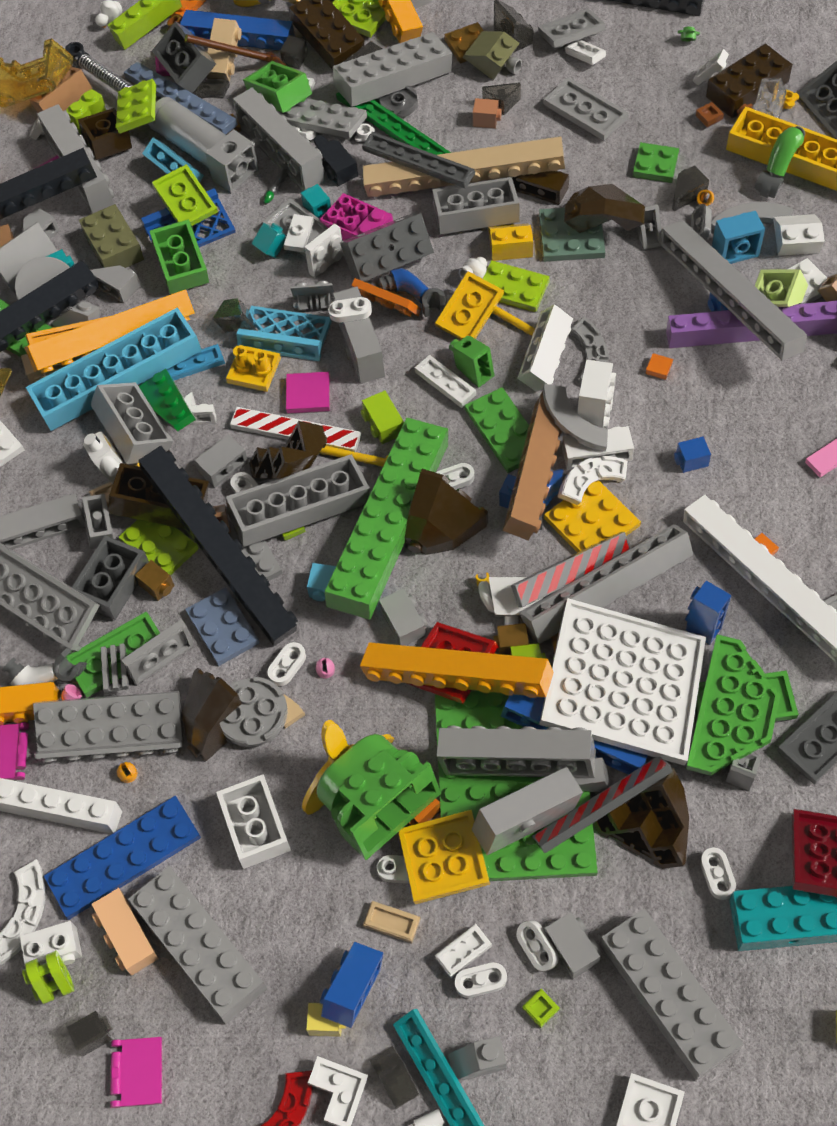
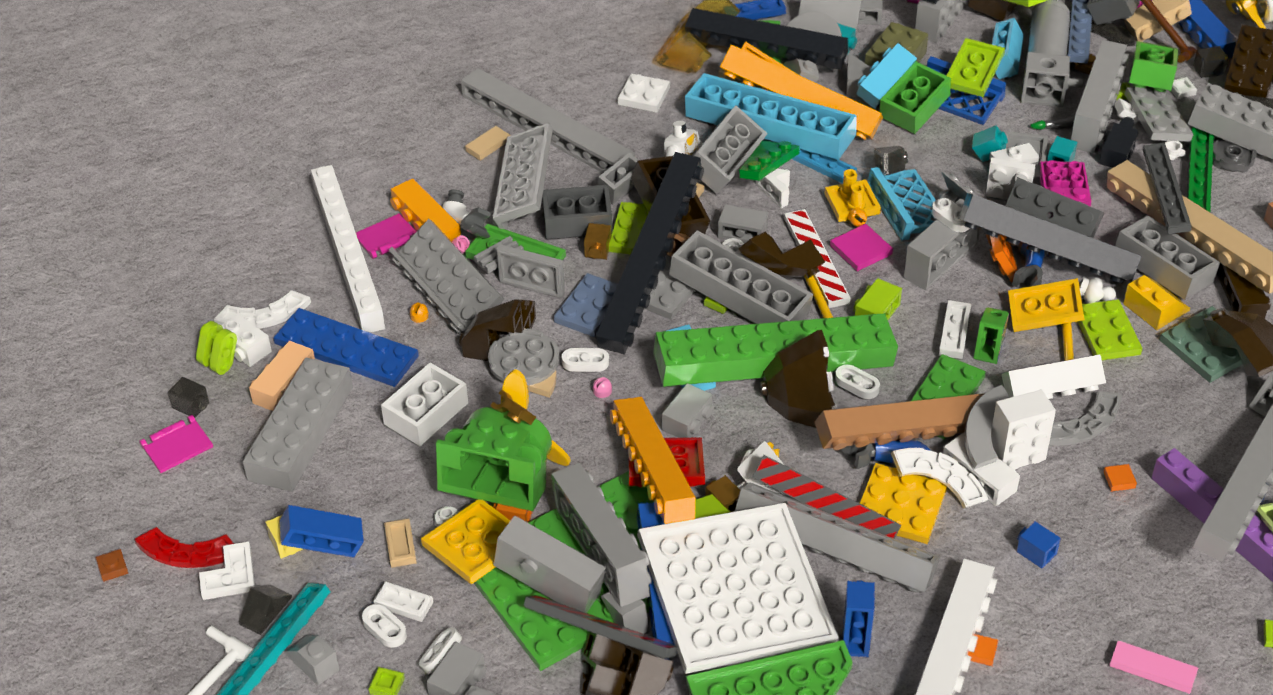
camera: 55 degrees right, 15 degrees down
(143, 260) = (884, 74): none -> medium azure brick
(277, 375) = (861, 213): none -> light orange hinge
(360, 747) = (516, 411): none -> pearl gold plate
(418, 263) = (1049, 237): none -> brick

